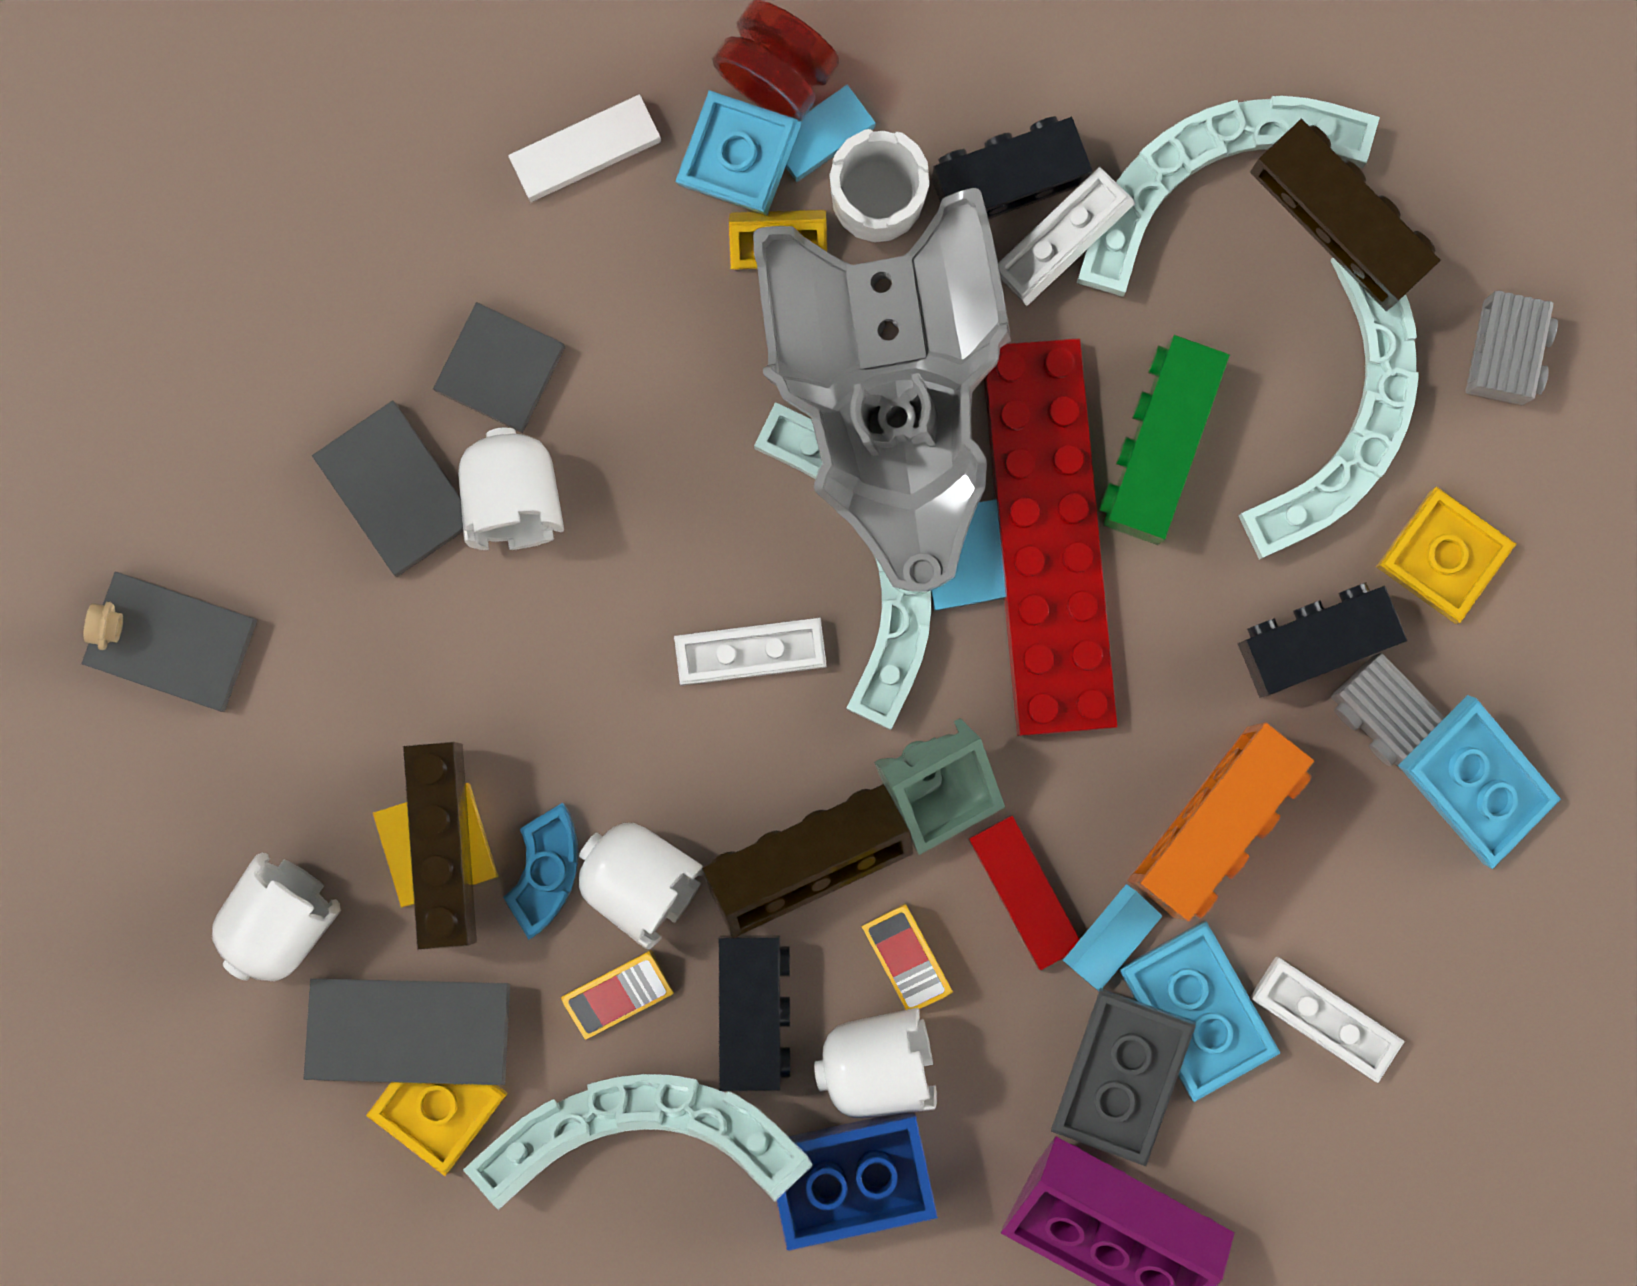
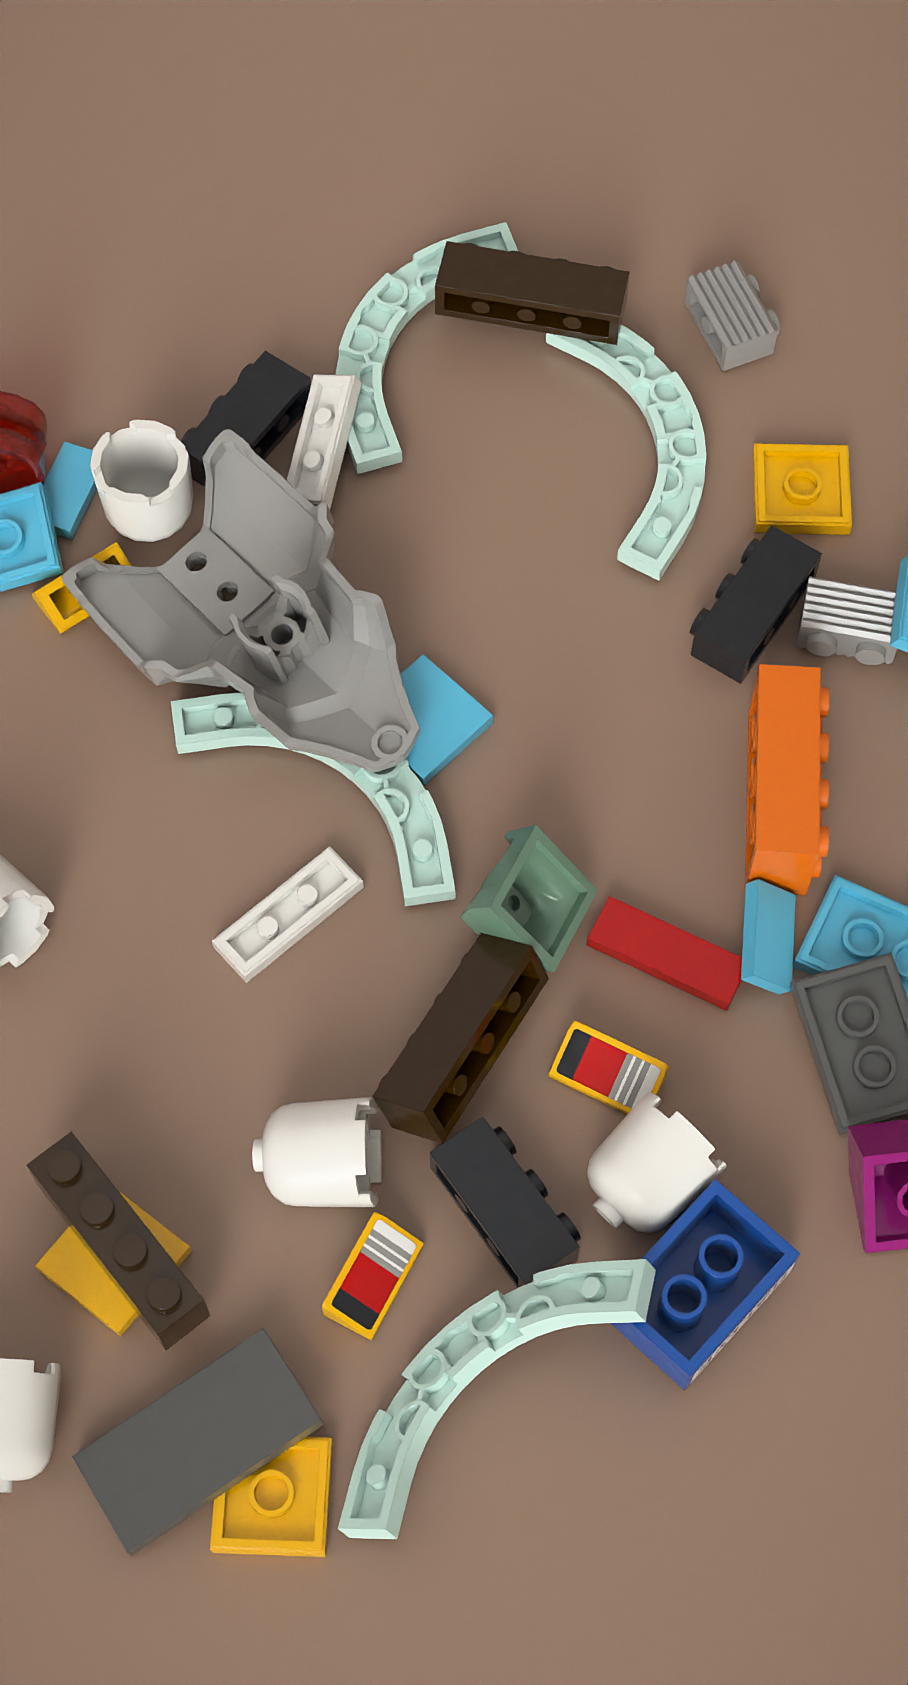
camera: 35 degrees left, 20 degrees down
(548, 870) = (234, 1213): dark azure tile -> none
(1049, 539) = (487, 675): red plate -> none
(1165, 439) = (515, 538): green brick -> none

